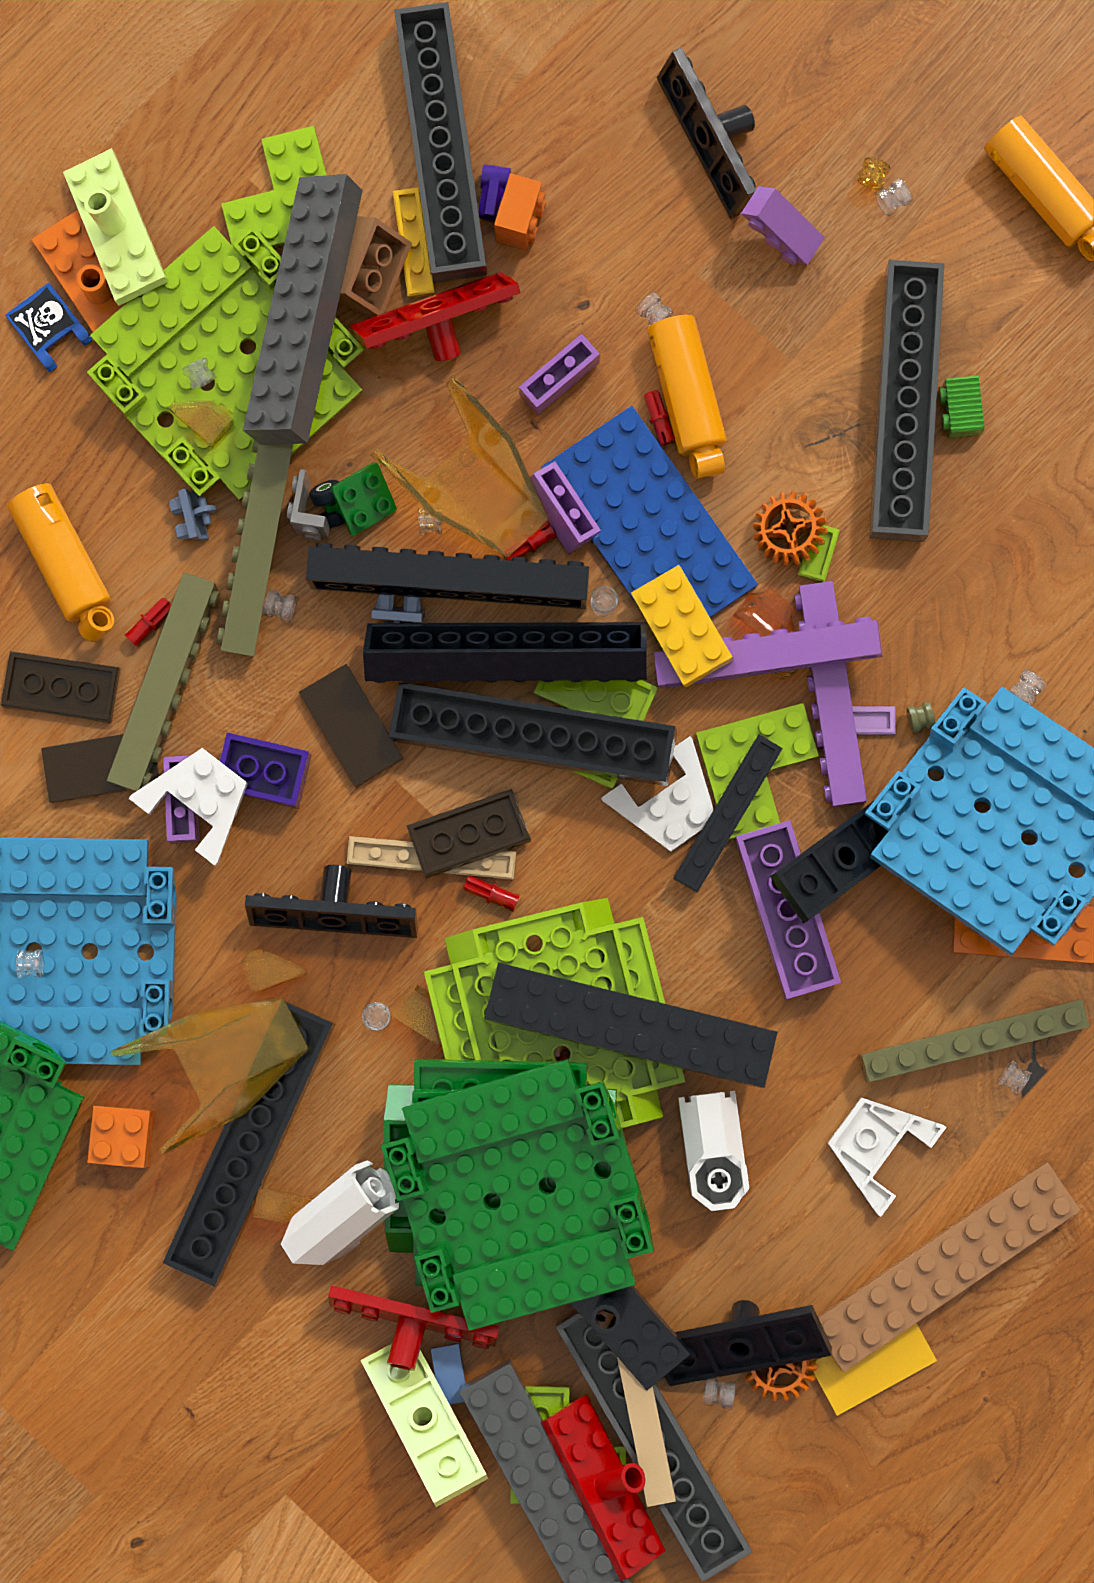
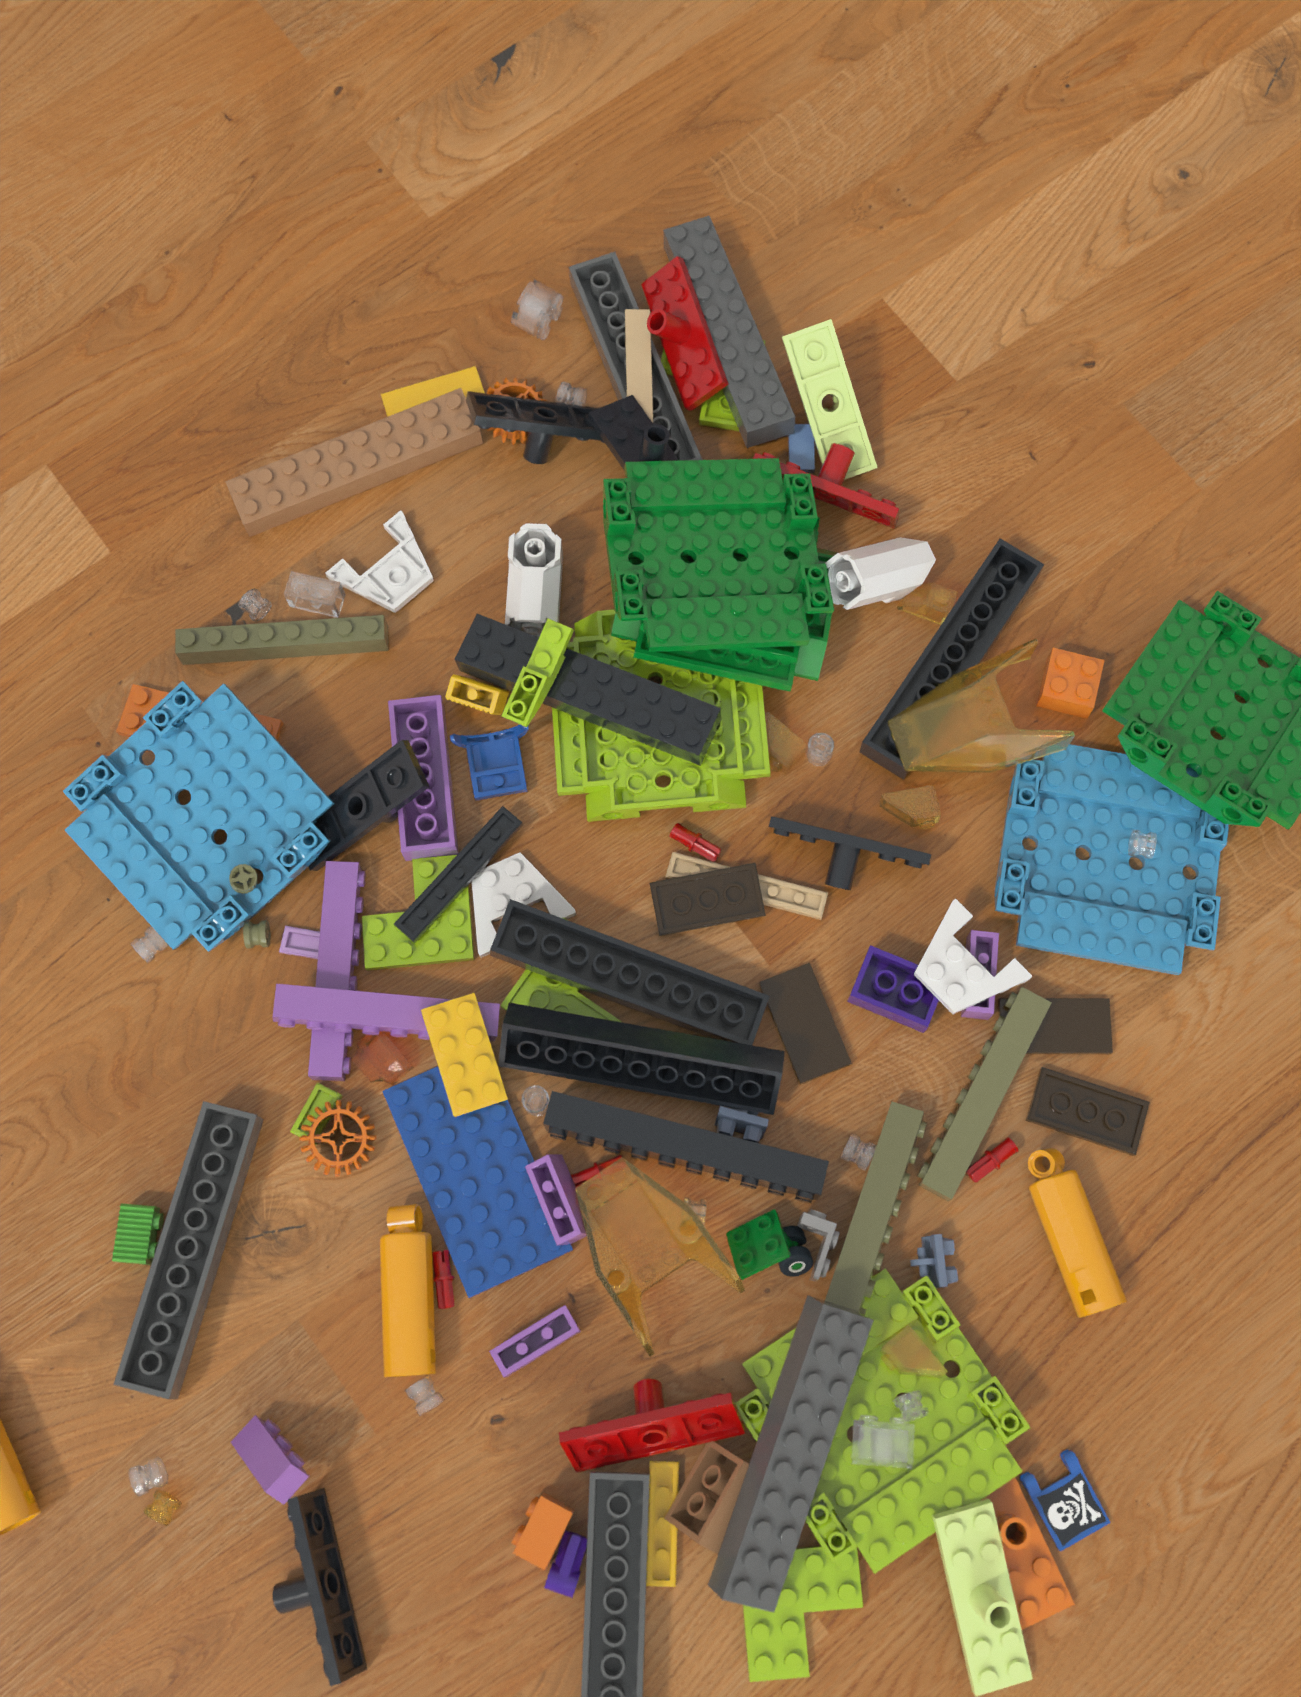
camera: 175 degrees left, 10 degrees down
(220, 333) = (883, 1442): none -> clear brick
(682, 1019) = (539, 673): none -> lime slope
(716, 944) = (494, 762): none -> blue piece
(751, 1009) = (476, 695): none -> yellow brick
(779, 1494) = (537, 309): none -> clear brick
(942, 758) = (242, 874): none -> olive wheel
(951, 1099) = (314, 594): none -> clear brick

